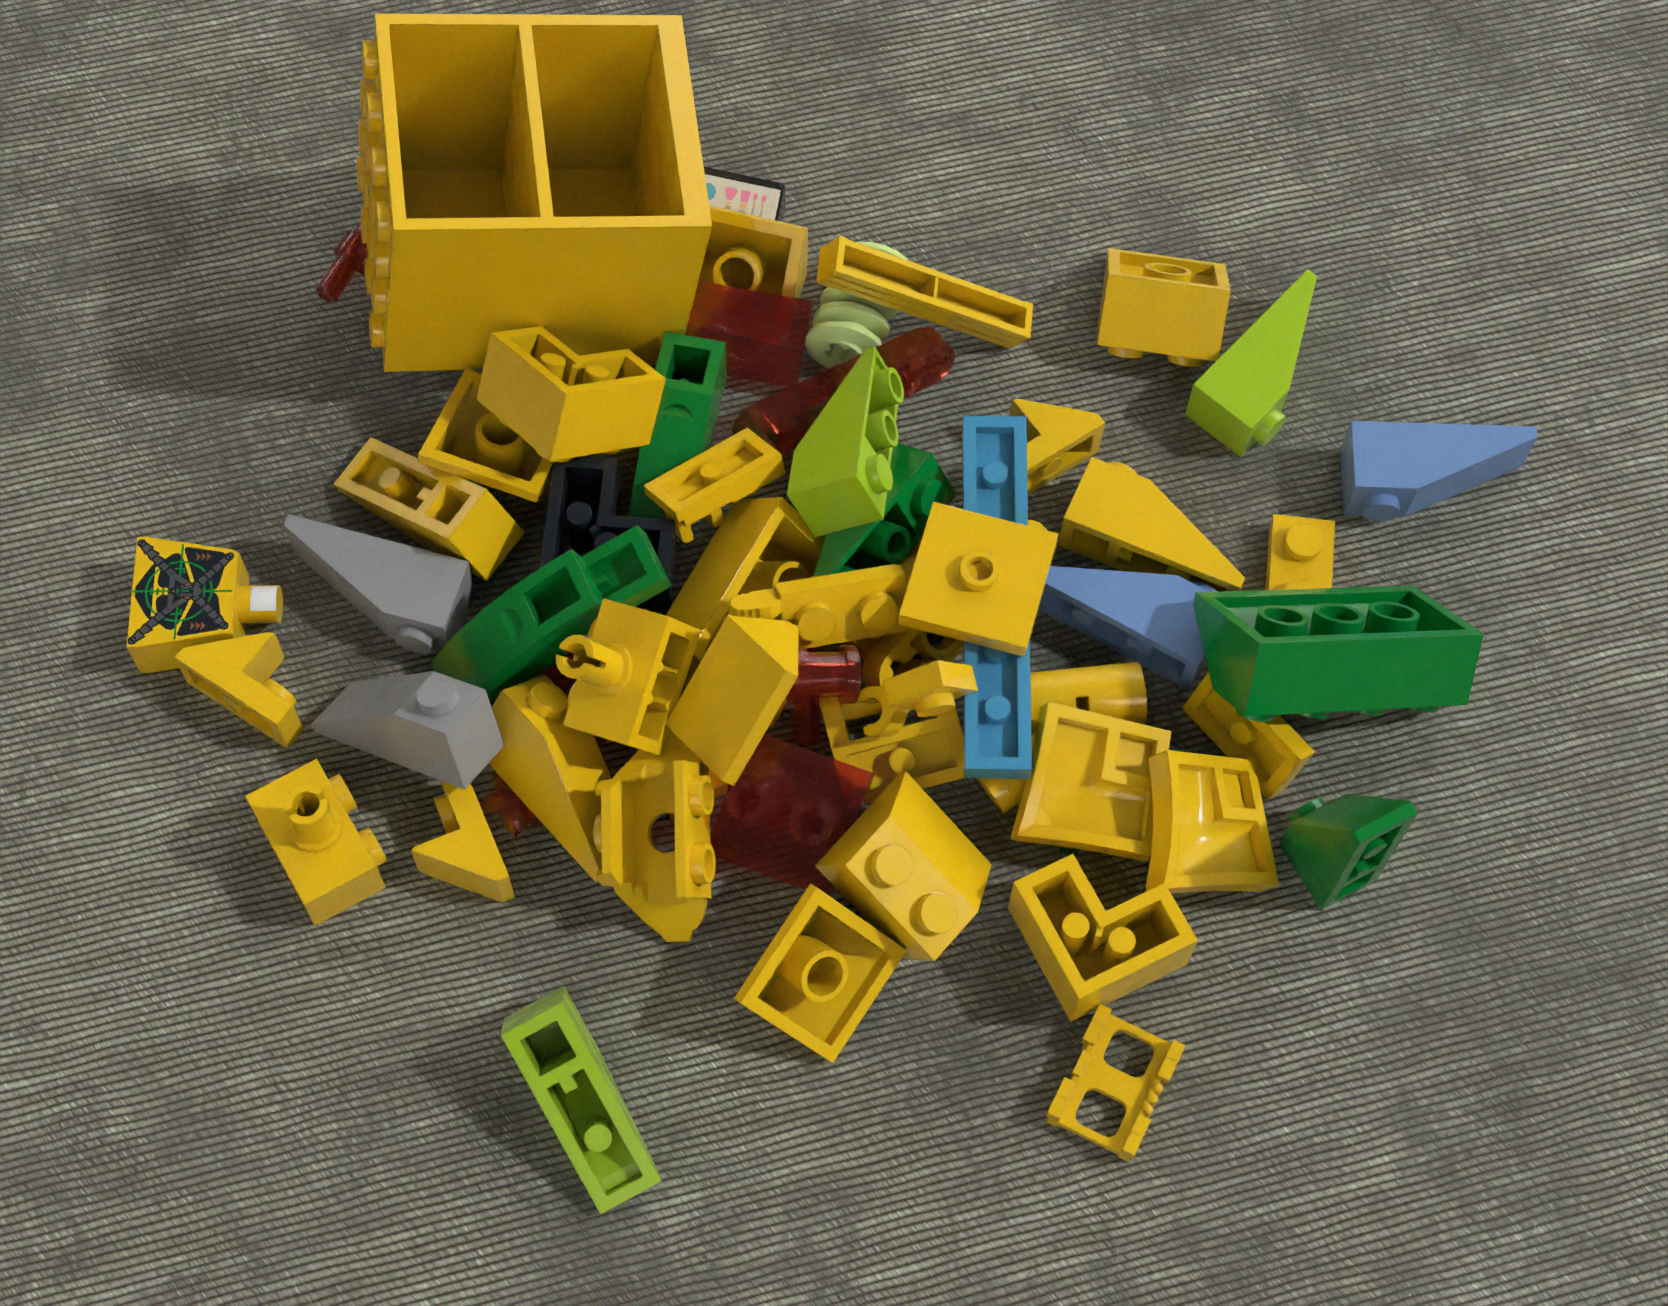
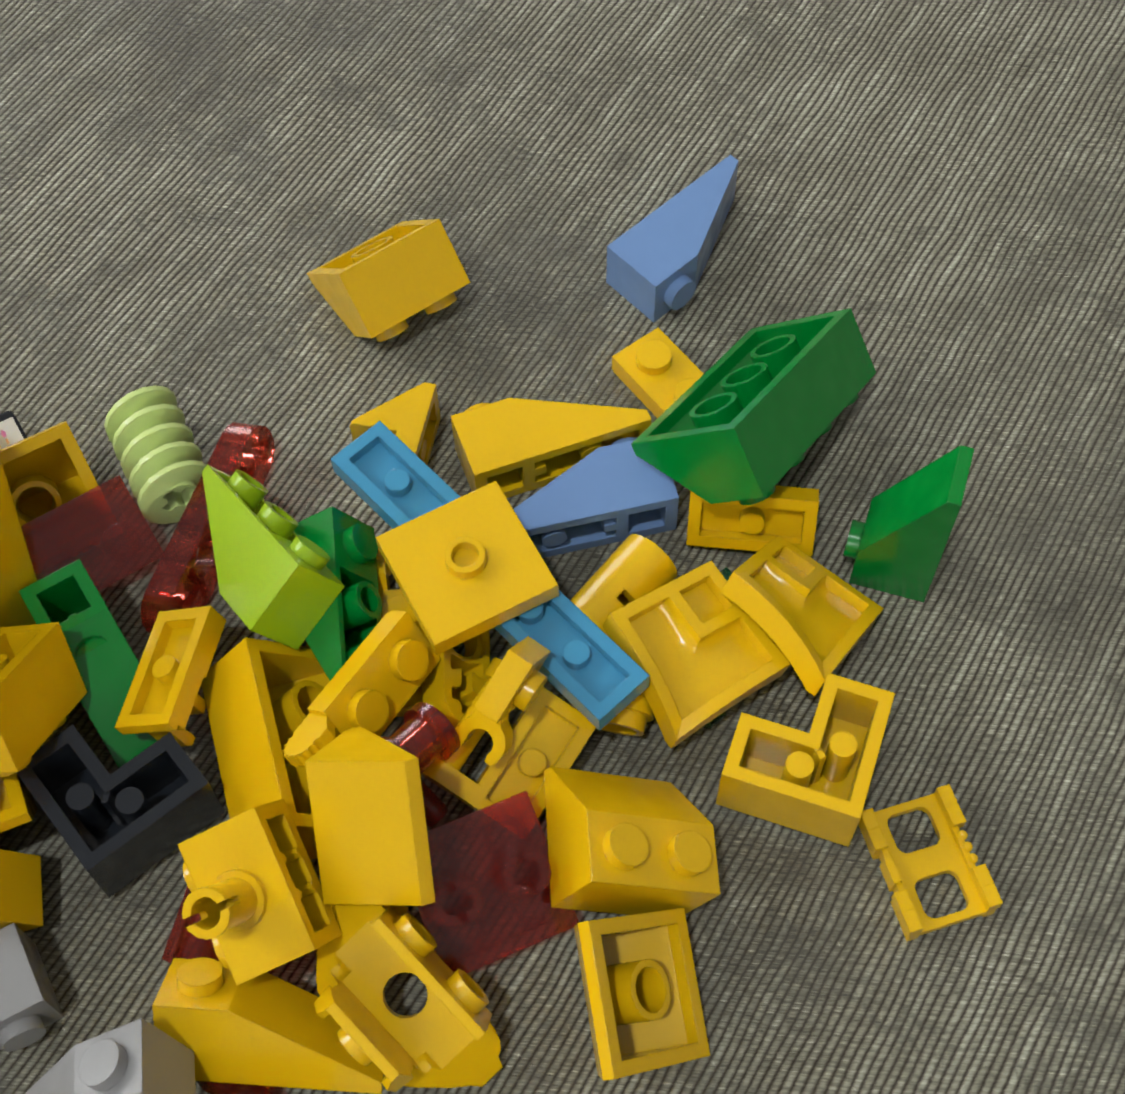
camera: 40 degrees left, 5 degrees down
(527, 623) = (129, 905): green slope -> none
(924, 292) = (202, 398): yellow piece -> none
(1247, 386) = (506, 273): lime slope -> none

